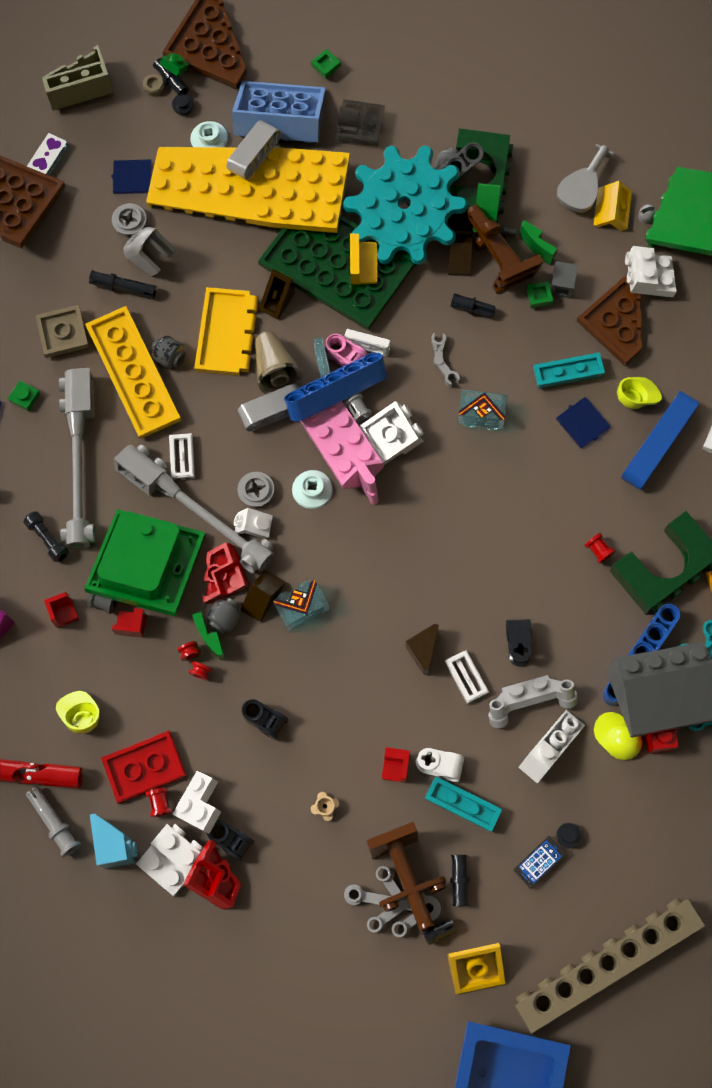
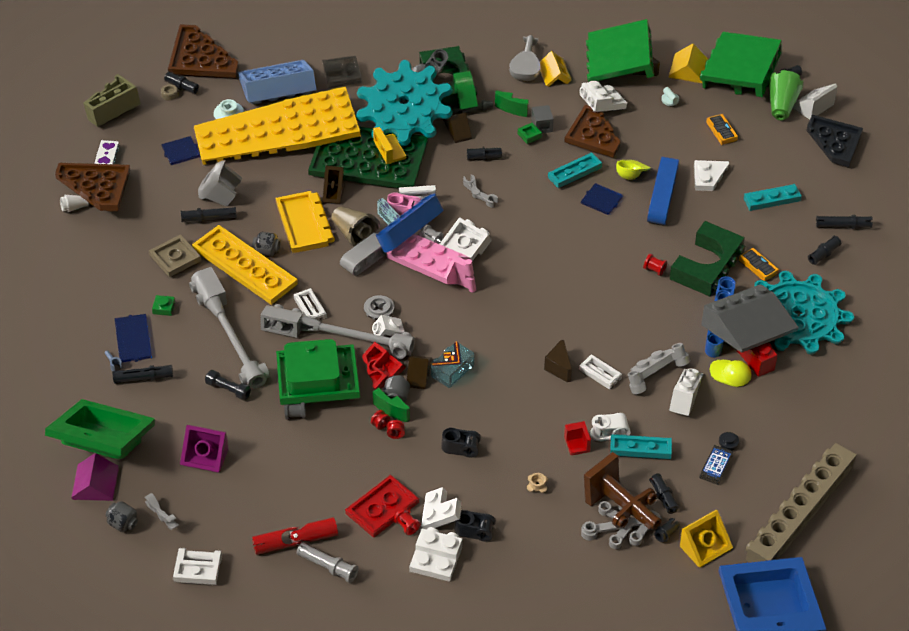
camera: 25 degrees left, 25 degrees down
(61, 609) = (263, 425): red panel -> none
(78, 712) = (314, 485): neon yellow cap -> none
(111, 845) = (385, 552): medium azure slope -> none
(125, 212) = (186, 172): light grey gear -> none
(130, 623) = (325, 420): red panel -> none
(174, 64) = (182, 70): green plate -> none
(182, 104) = (198, 97): black plate -> none
(212, 878) = (477, 552): red slope -> none
(253, 149) = (272, 101): light grey beam -> none
(310, 498) = (421, 296): light aqua piece -> none
(325, 64) = (297, 44): green plate -> none
(482, 409) = (524, 209): clear light blue brick -> none
(512, 268) = (504, 121): reddish brown piece -> none
(519, 638) = (627, 336): black piece -> none
(647, 217) = (580, 68): light grey hinge -> none

